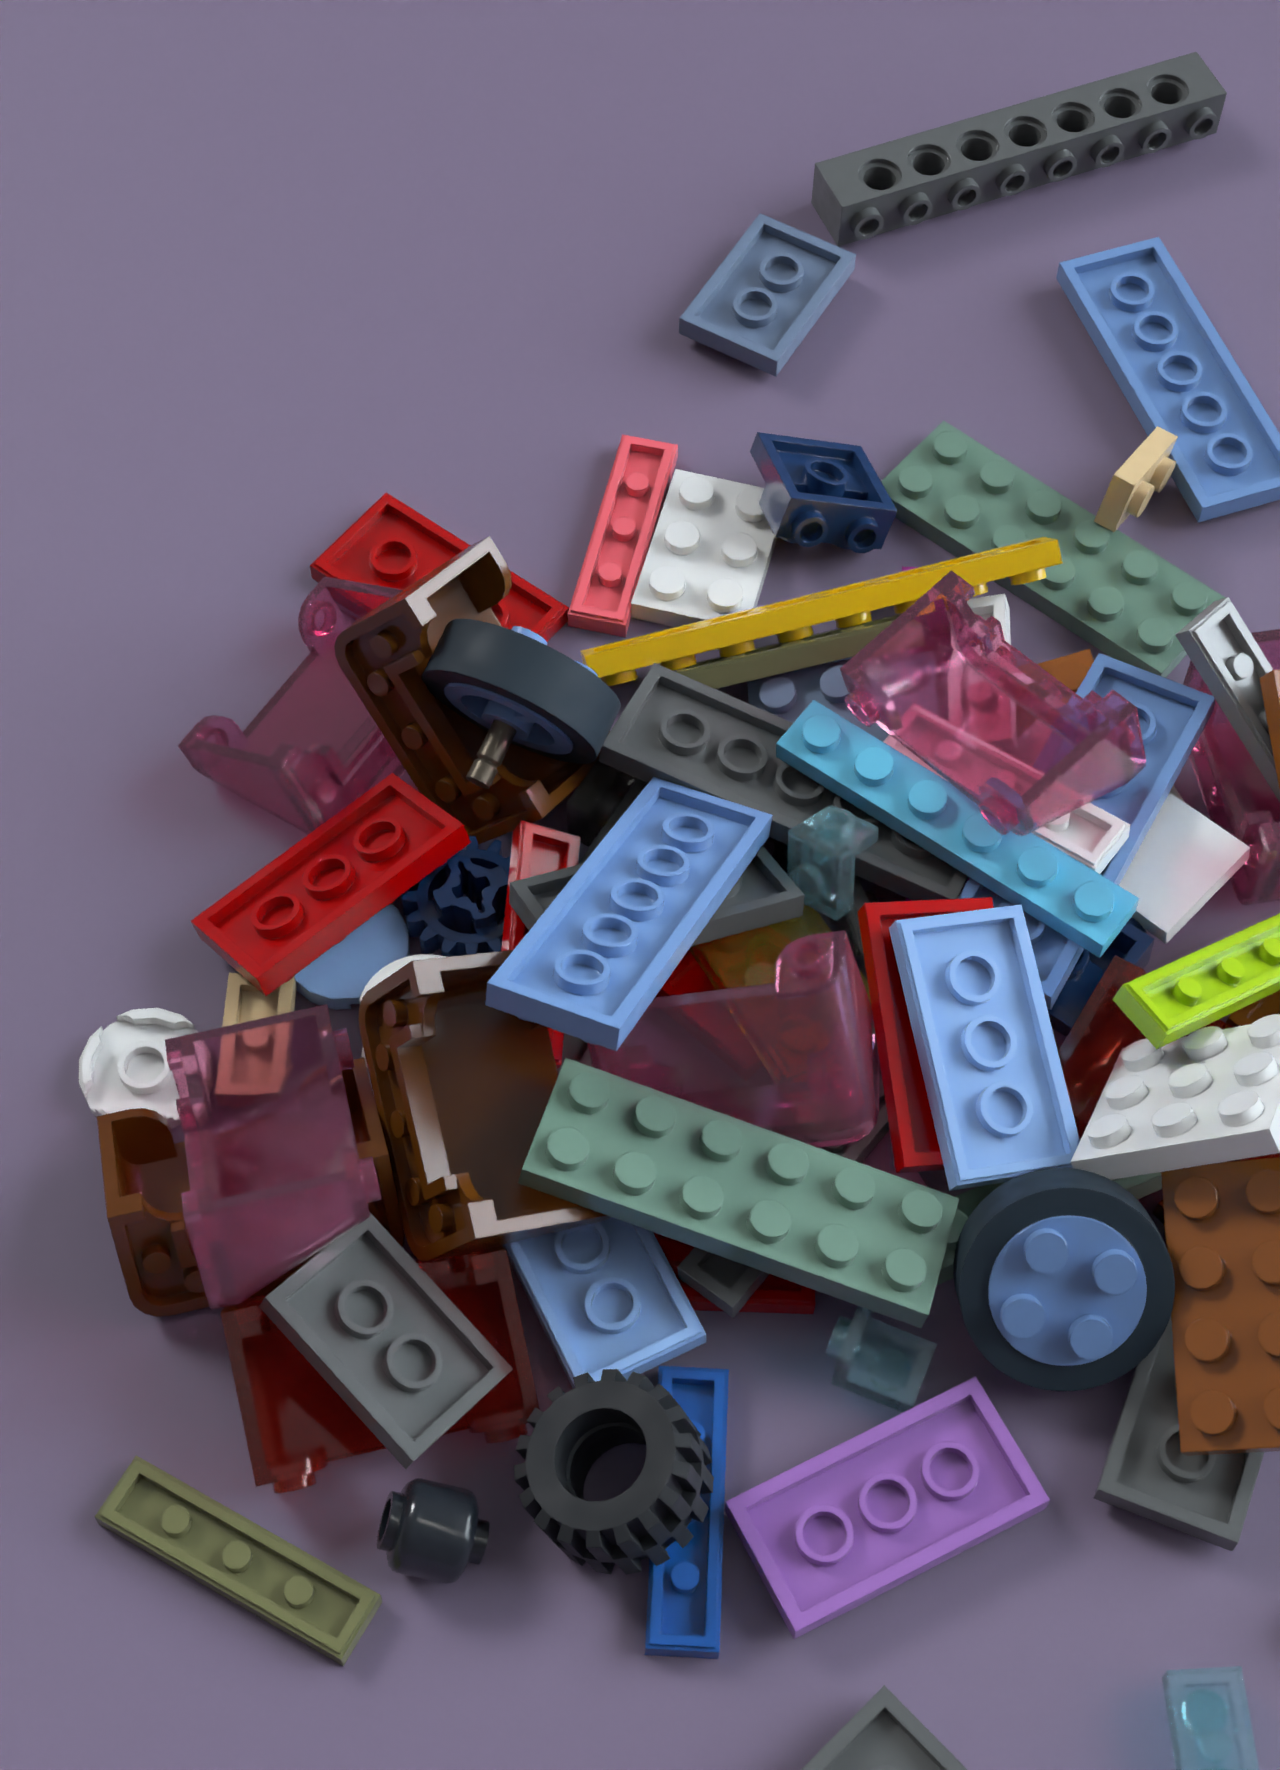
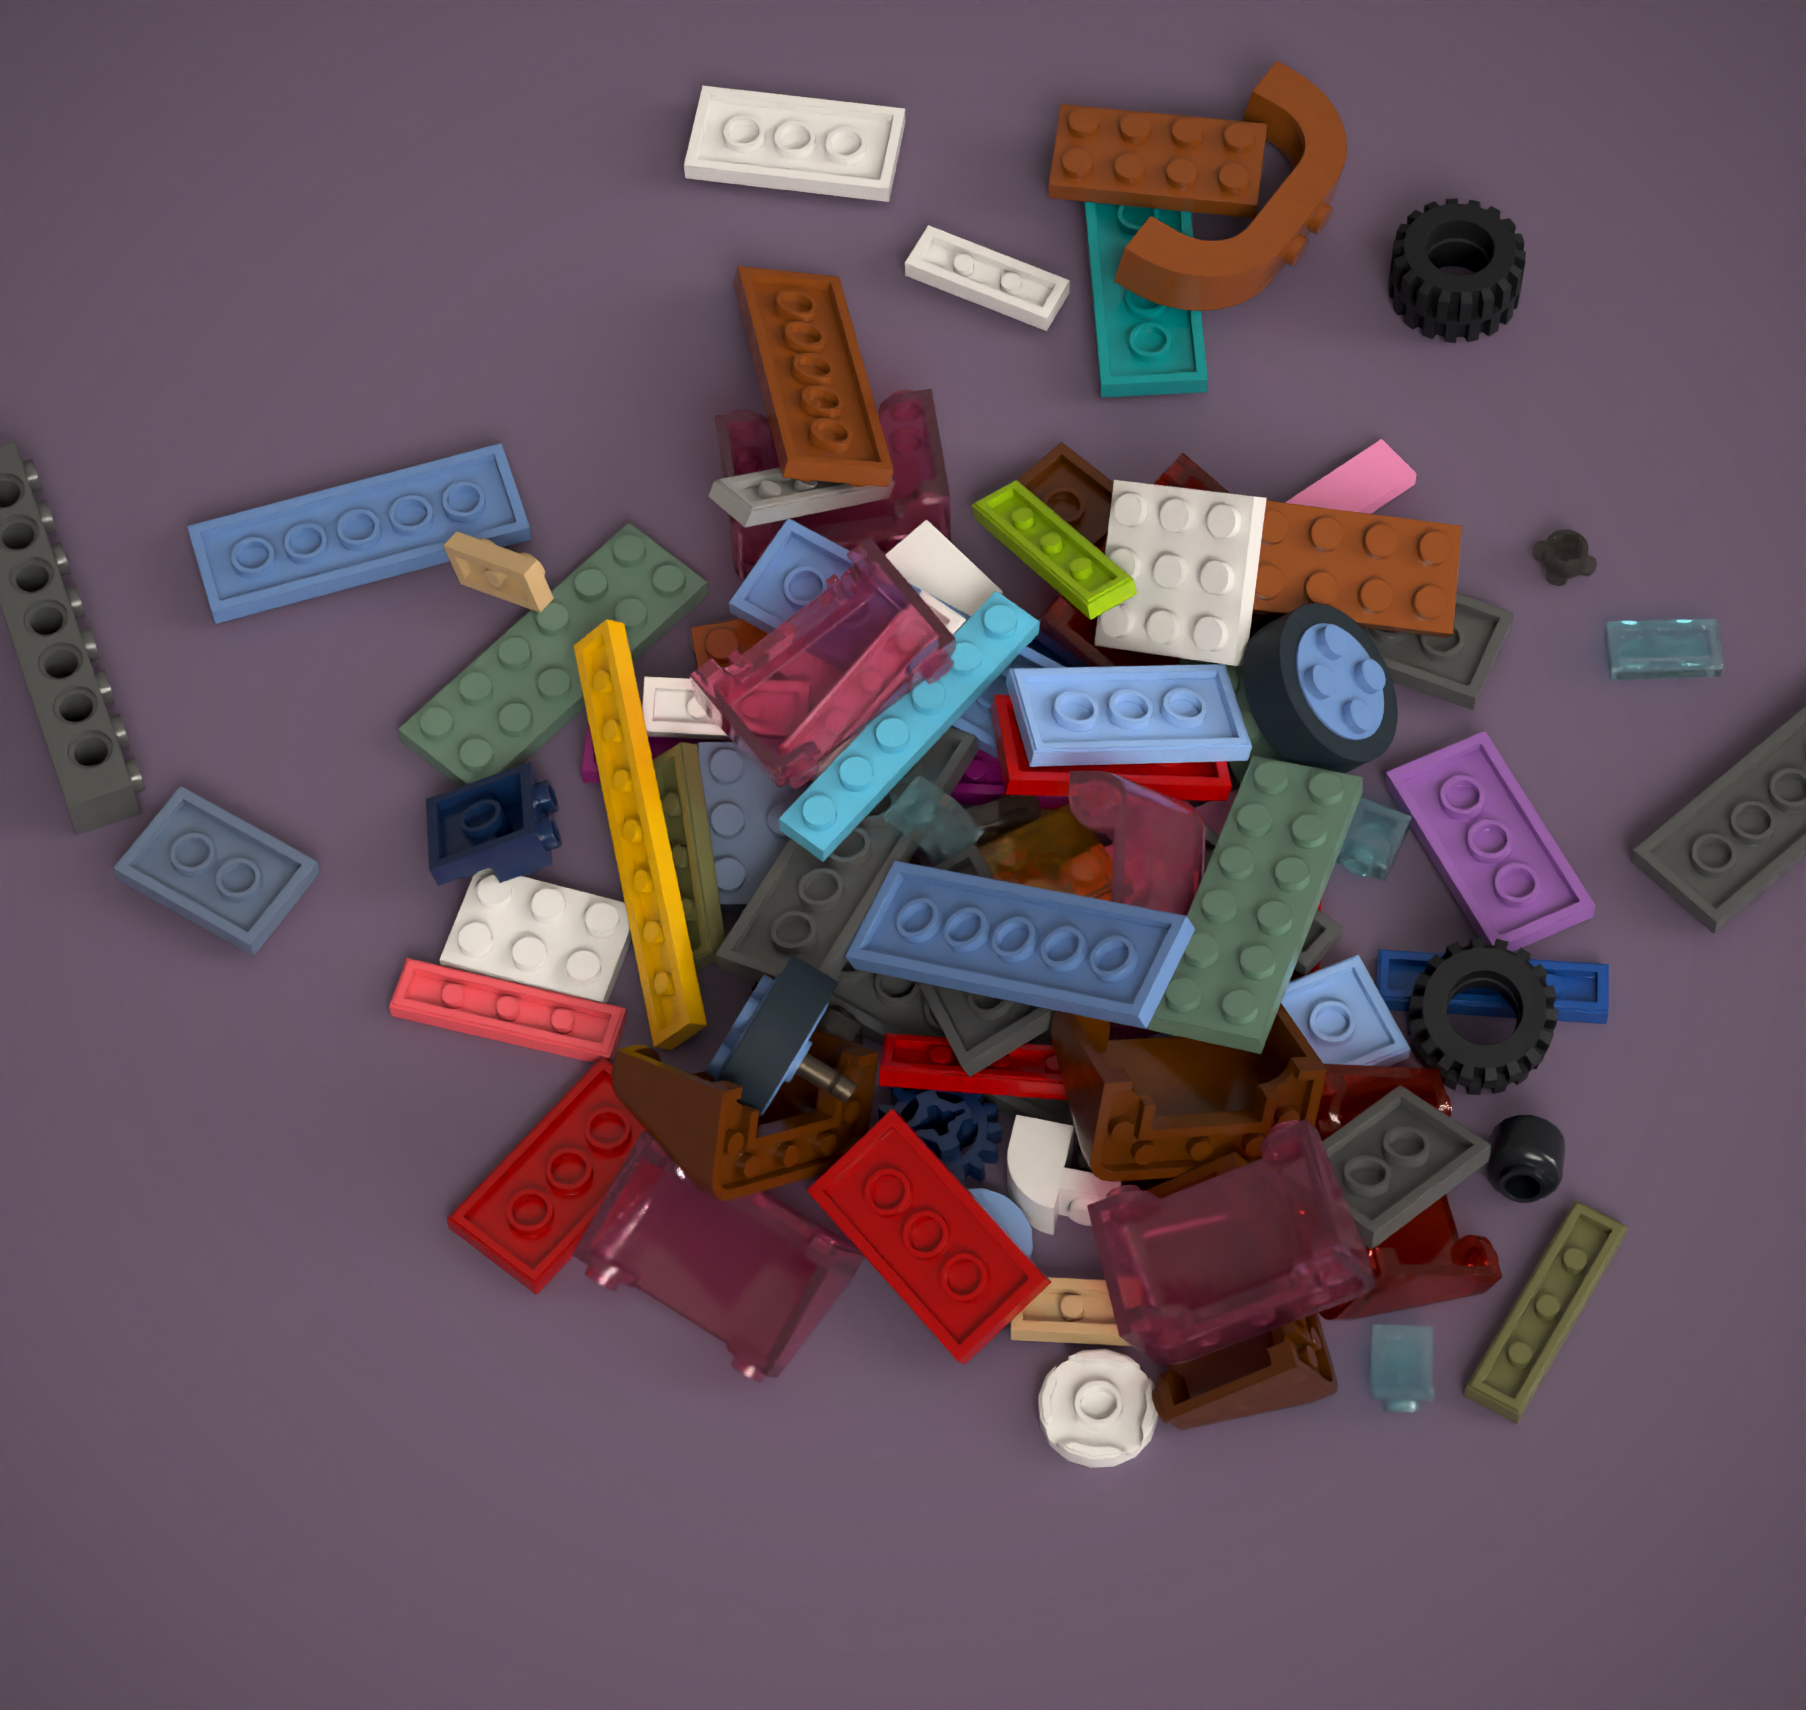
camera: 85 degrees left, 0 degrees up
(157, 1379) = (1401, 1366): none -> clear light blue bracket

